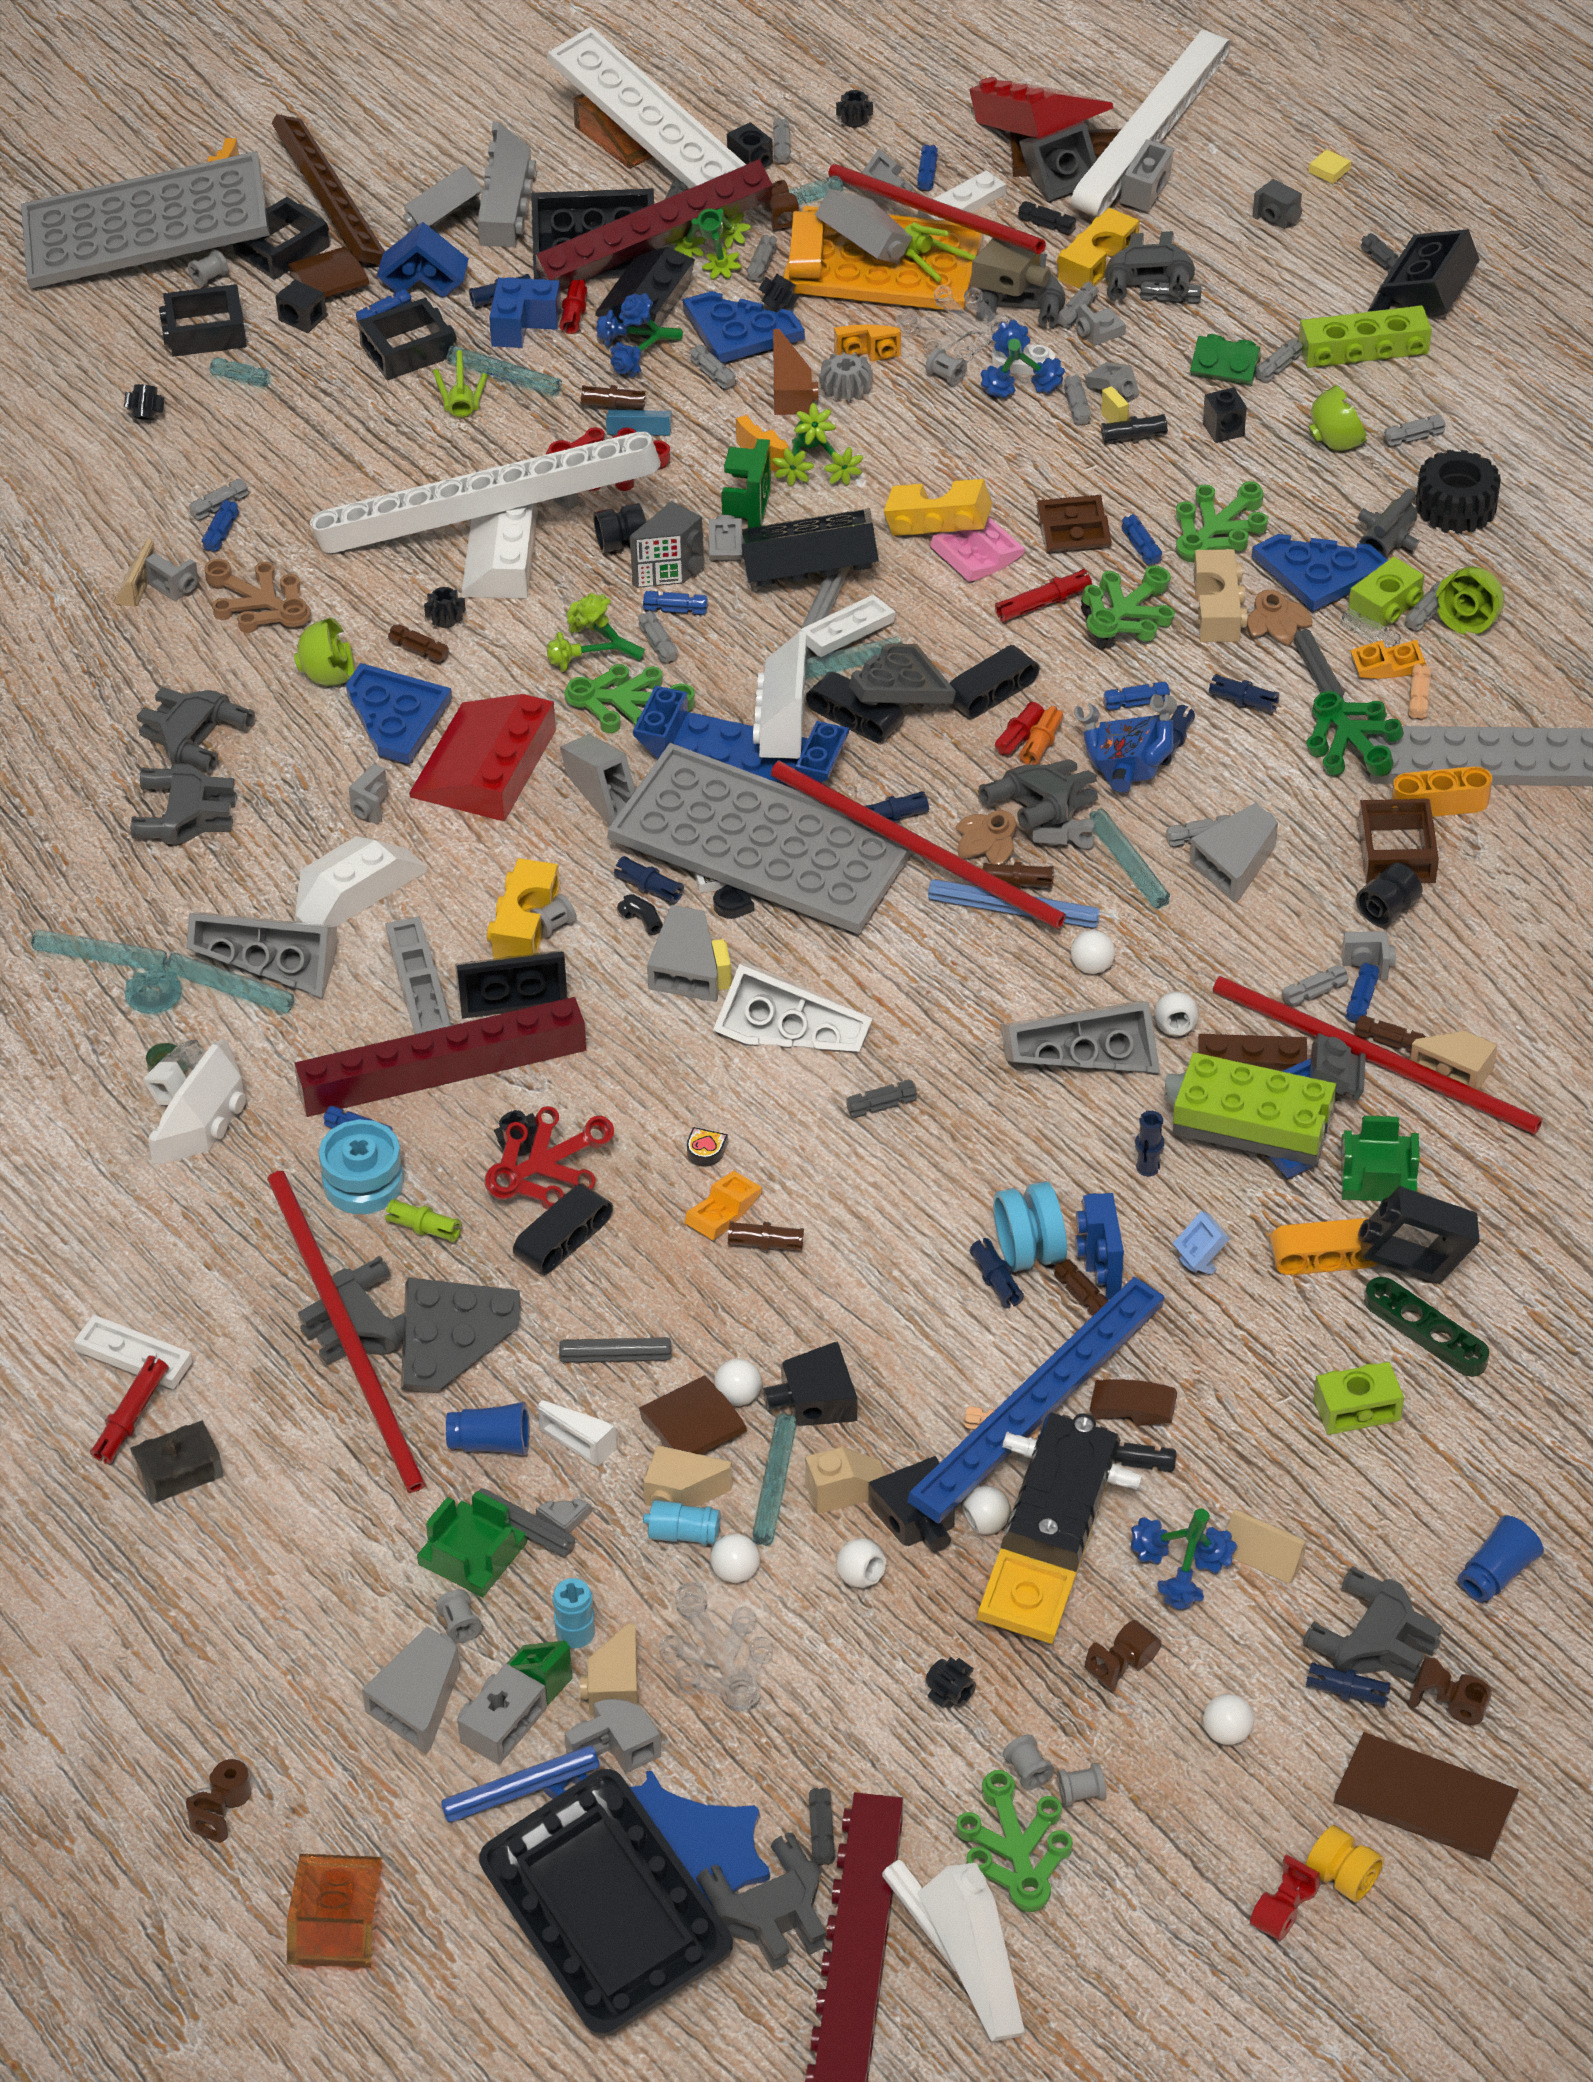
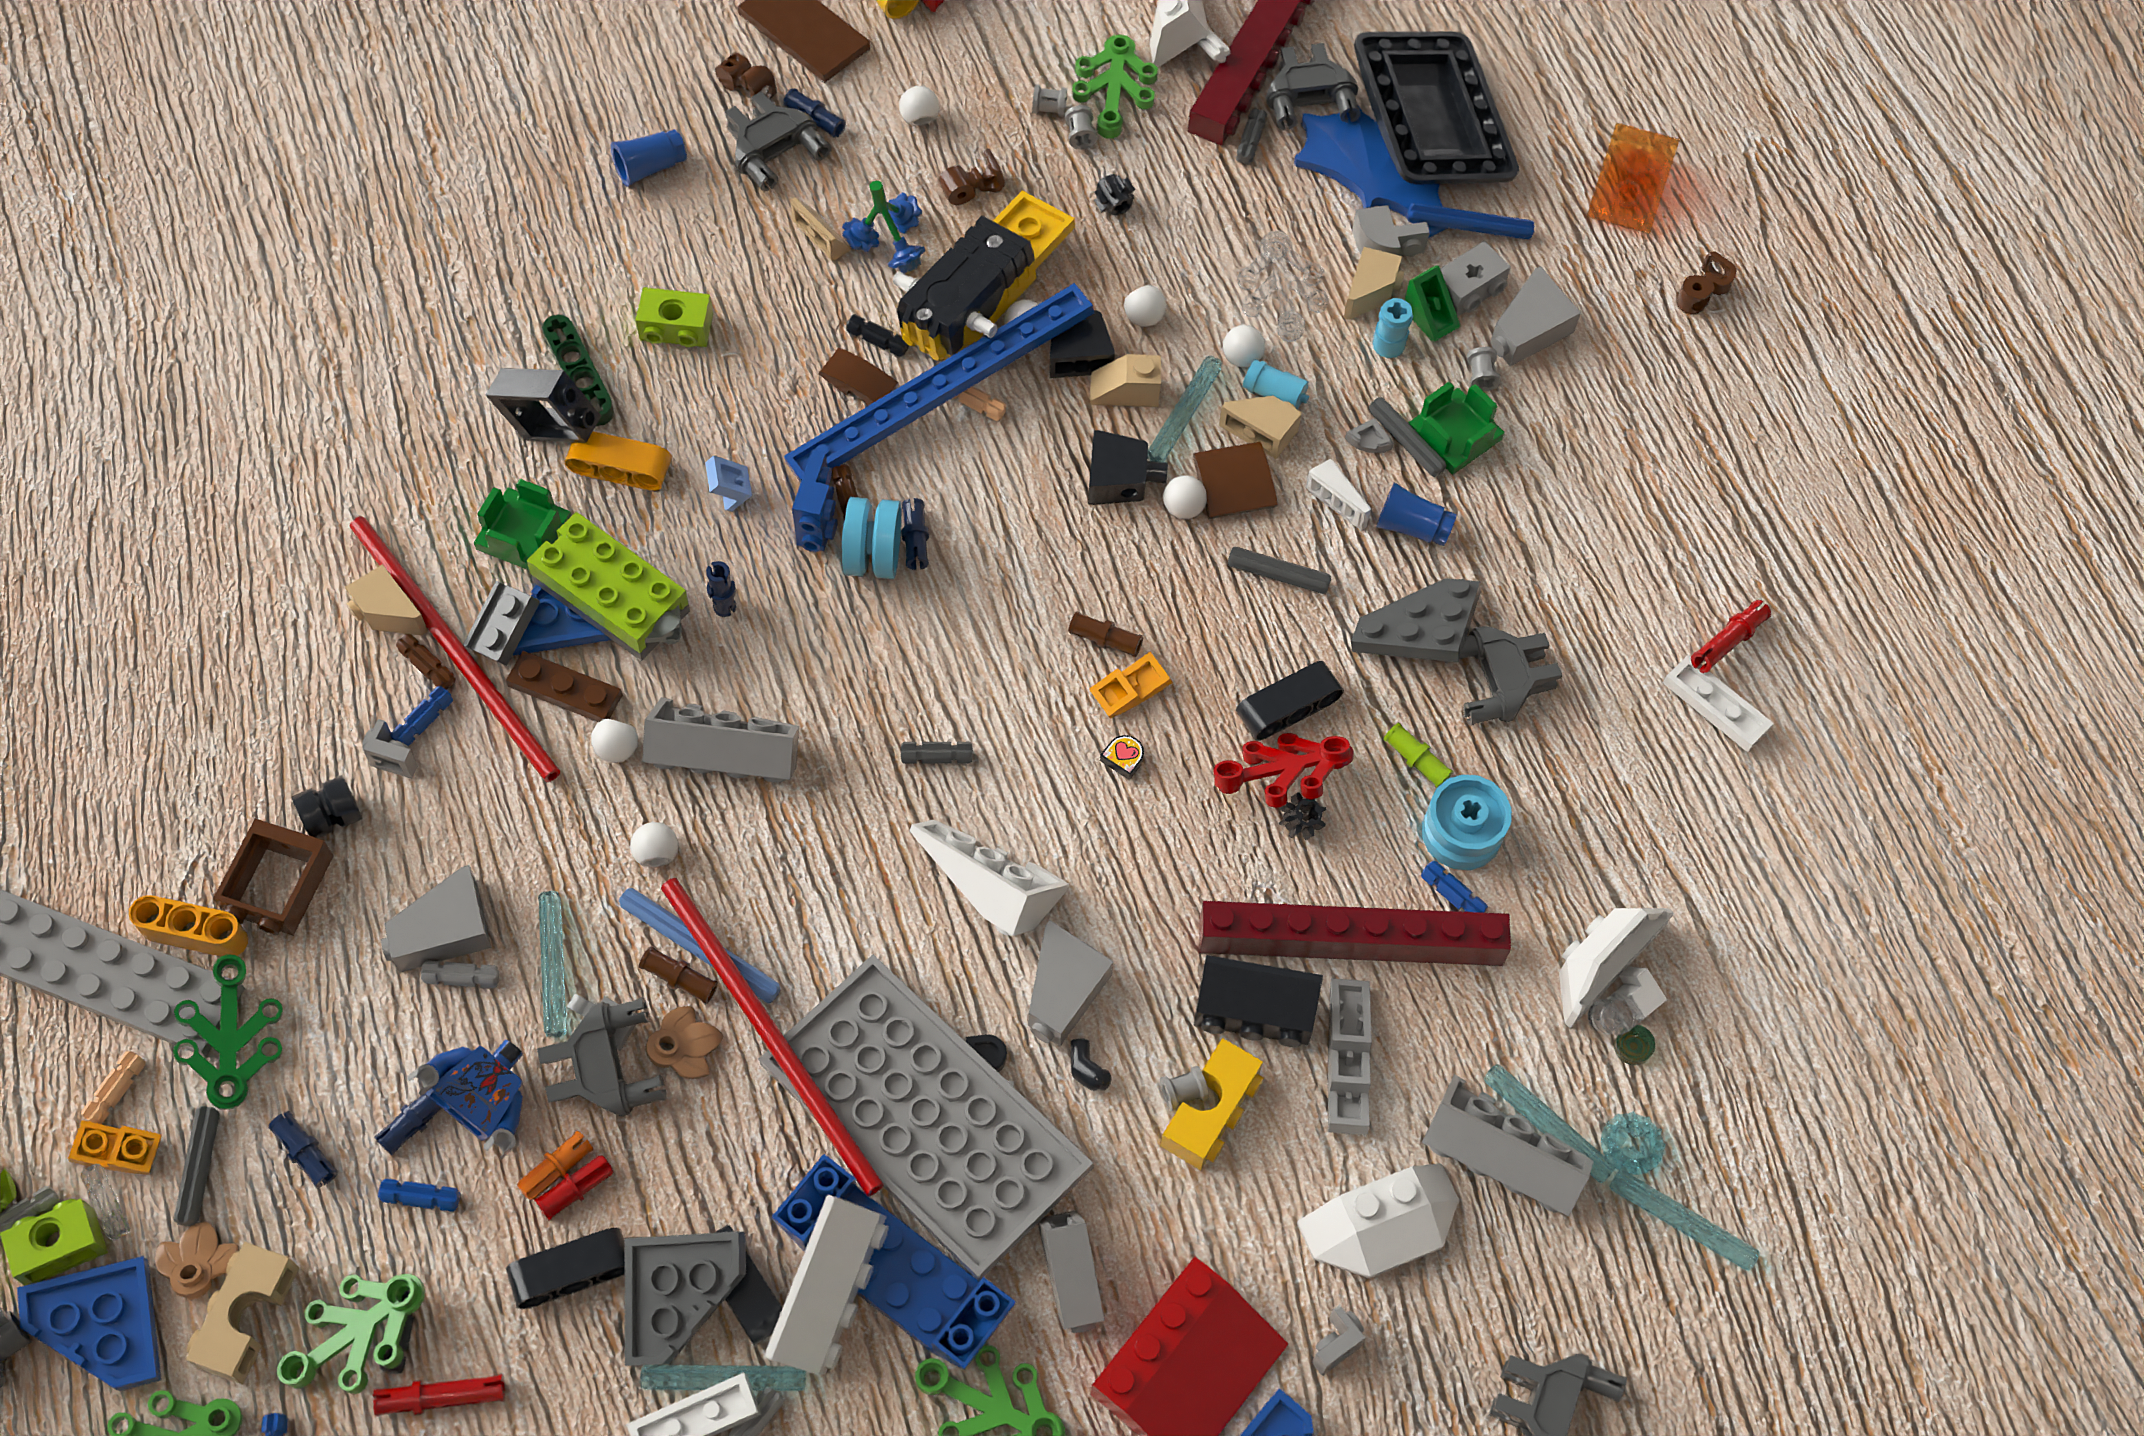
camera: 165 degrees left, 15 degrees up
(176, 1462) = (1695, 576): clear smoke brick -> none
(346, 1332) = (1527, 639): red piece -> none
(649, 880) = (1064, 1109): dark blue pin -> none
(722, 964) = (1031, 957): light yellow tile -> none
(901, 807) = (765, 1117): dark blue pin -> none
(1315, 985) = (461, 739): light grey axle -> none

